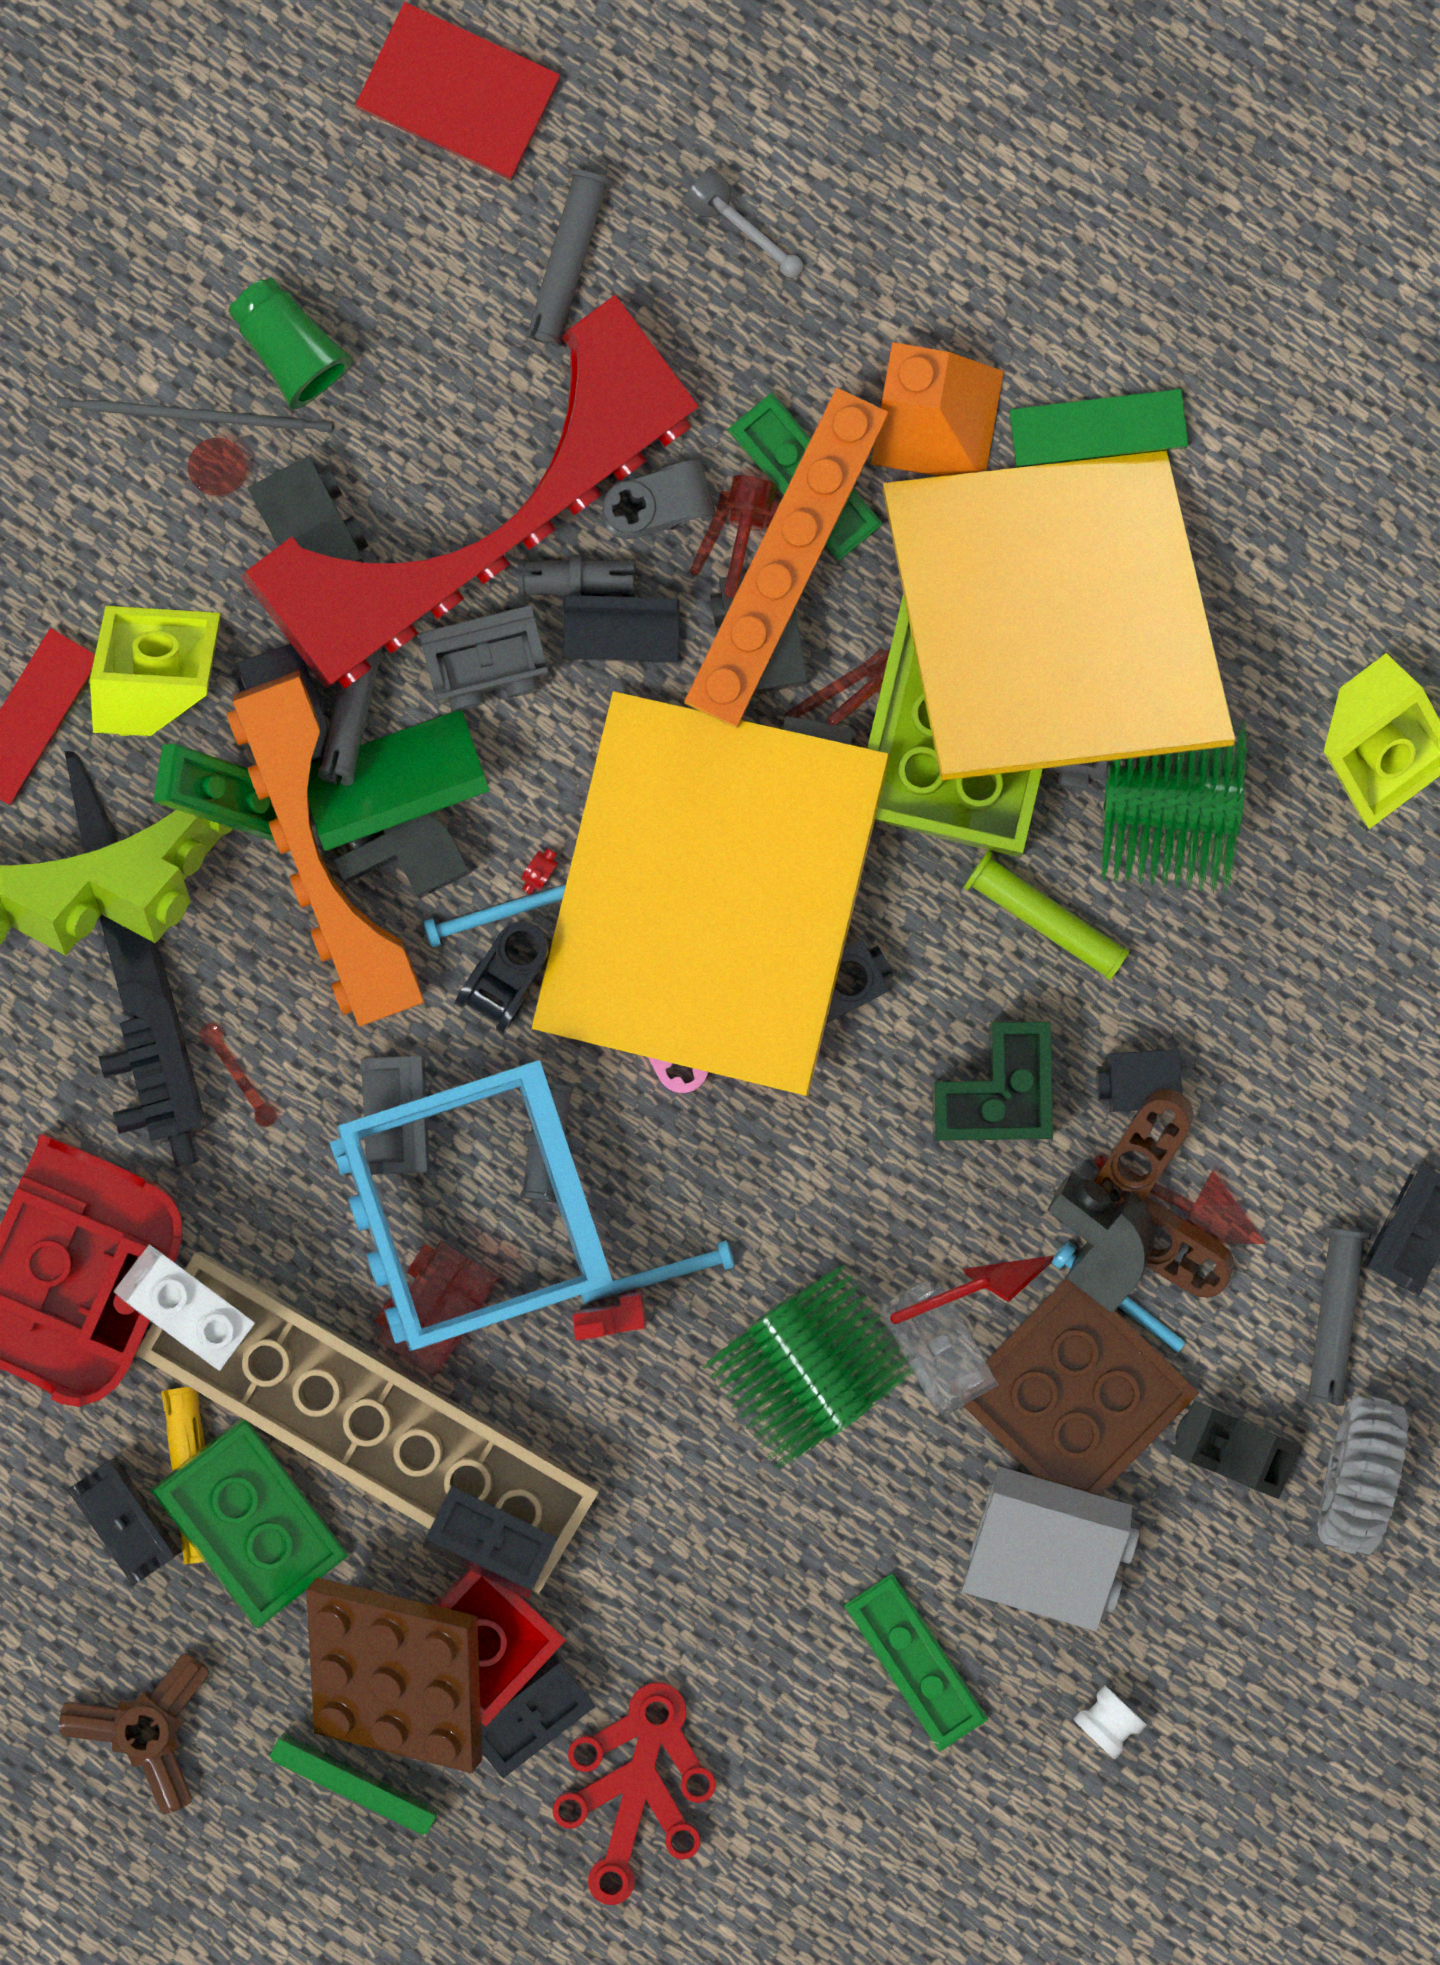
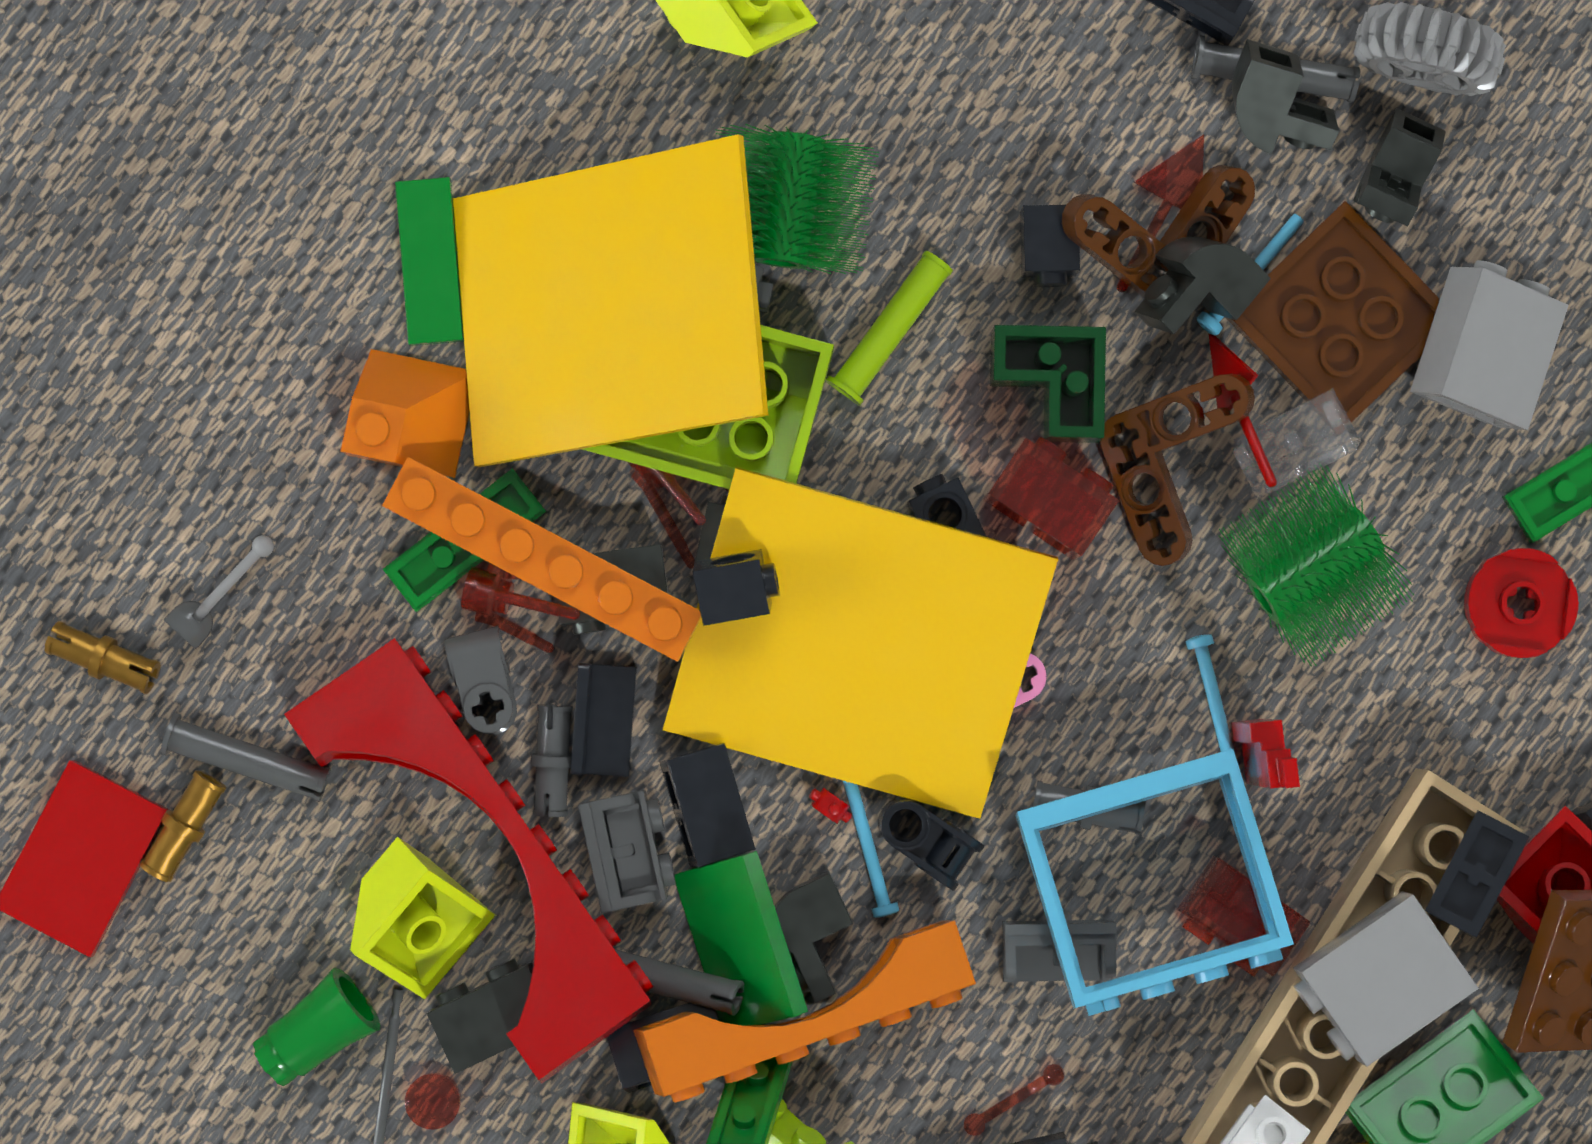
camera: 90 degrees left, 0 degrees up
(377, 1446) = (1383, 980): none -> light grey brick
(406, 440) = (414, 919): none -> neon yellow slope
(494, 195) = (183, 826): none -> pearl gold pin
(535, 741) = (707, 805): none -> black hinge
(668, 104) = (102, 657): none -> pearl gold pin
(764, 757) = (735, 587): none -> black brick
(801, 1618) = (1539, 628): none -> red plate
(871, 1087) = (1053, 497): none -> clear red piece
(935, 1195) = (1154, 439): none -> reddish brown beam
(1295, 1306) = (1266, 101): none -> pearl dark grey brick

